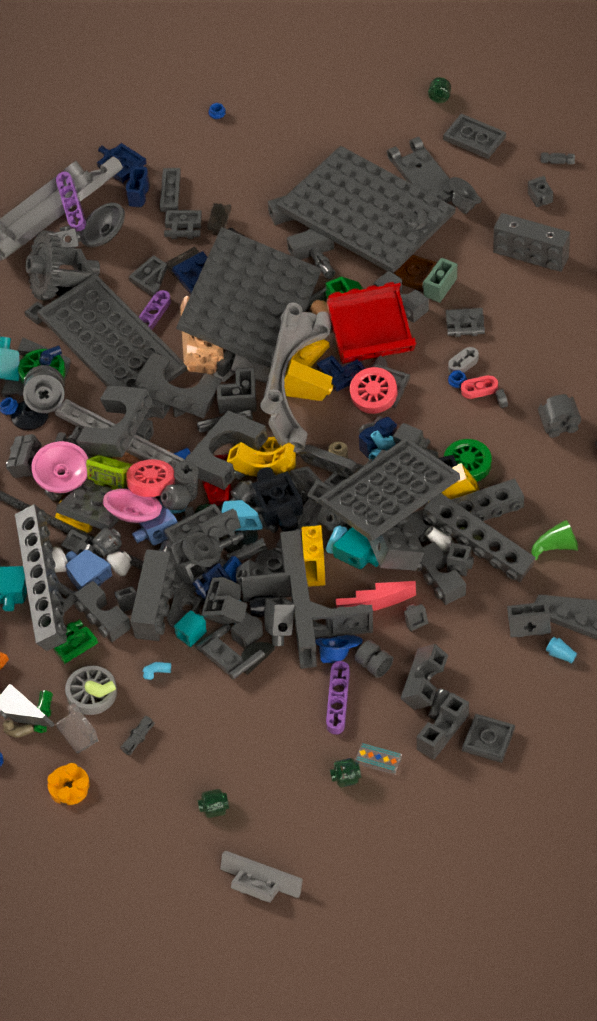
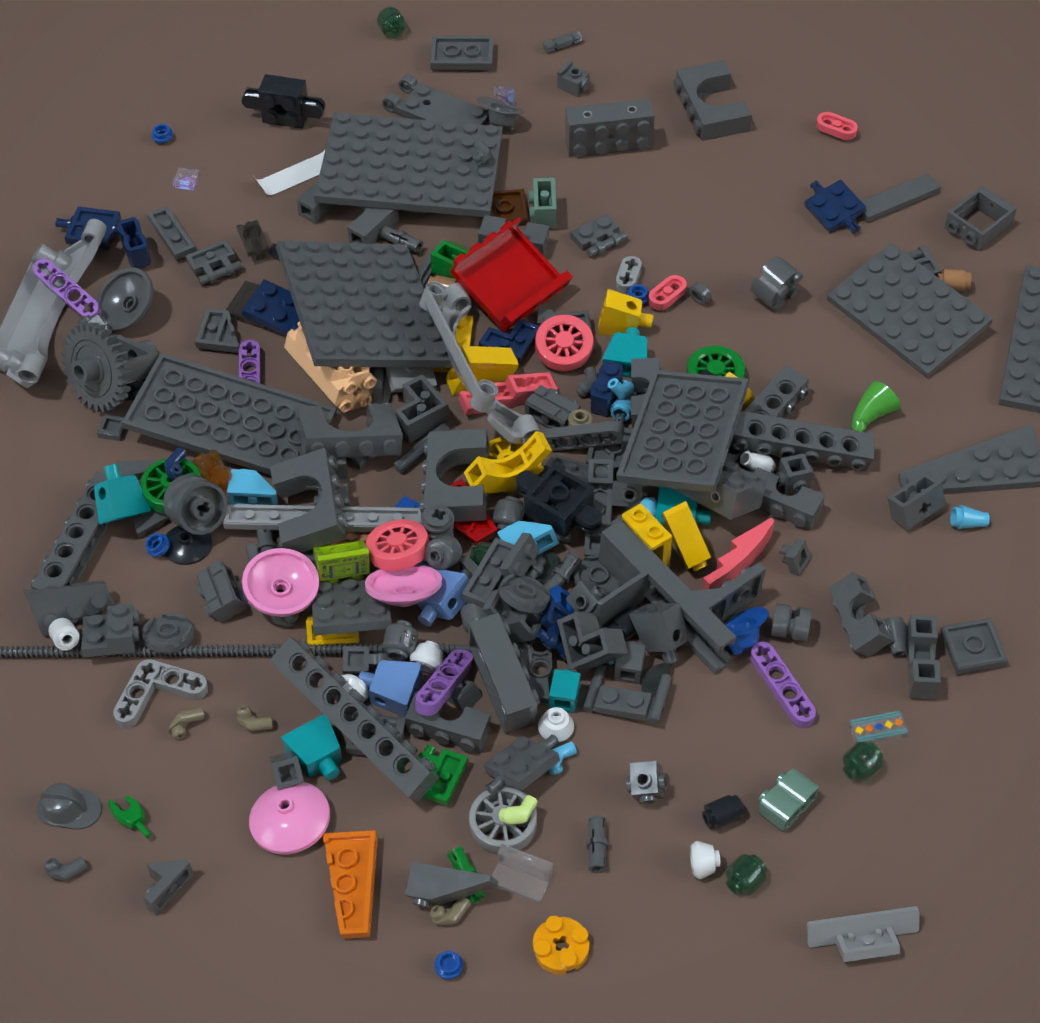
camera: 35 degrees left, 0 degrees up
(73, 374) = (213, 469): none -> clear orange hips
(88, 395) = (250, 488): none -> medium azure slope
(95, 589) = (439, 680): none -> medium lavender beam
(126, 659) = (521, 763): none -> dark grey plate
(169, 648) = (556, 722): none -> white cone
(193, 779) = (703, 859): none -> white cone
(195, 711) = (646, 781): none -> brick
(210, 153) = (186, 179): none -> clear tile
(230, 756) = (723, 811): none -> black brick
(278, 182) = (292, 175): none -> white sticker
(278, 771) = (787, 799): none -> sand green brick
(312, 122) = (283, 101): none -> black brick
(318, 410) = (512, 391): none -> coral slope
(329, 430) = (550, 407): none -> dark grey brick
(343, 563) = (686, 536): none -> yellow slope
(414, 414) = (626, 347): none -> teal torso
(429, 388) = (620, 313): none -> yellow torso
(478, 184) = (504, 94): none -> clear tile

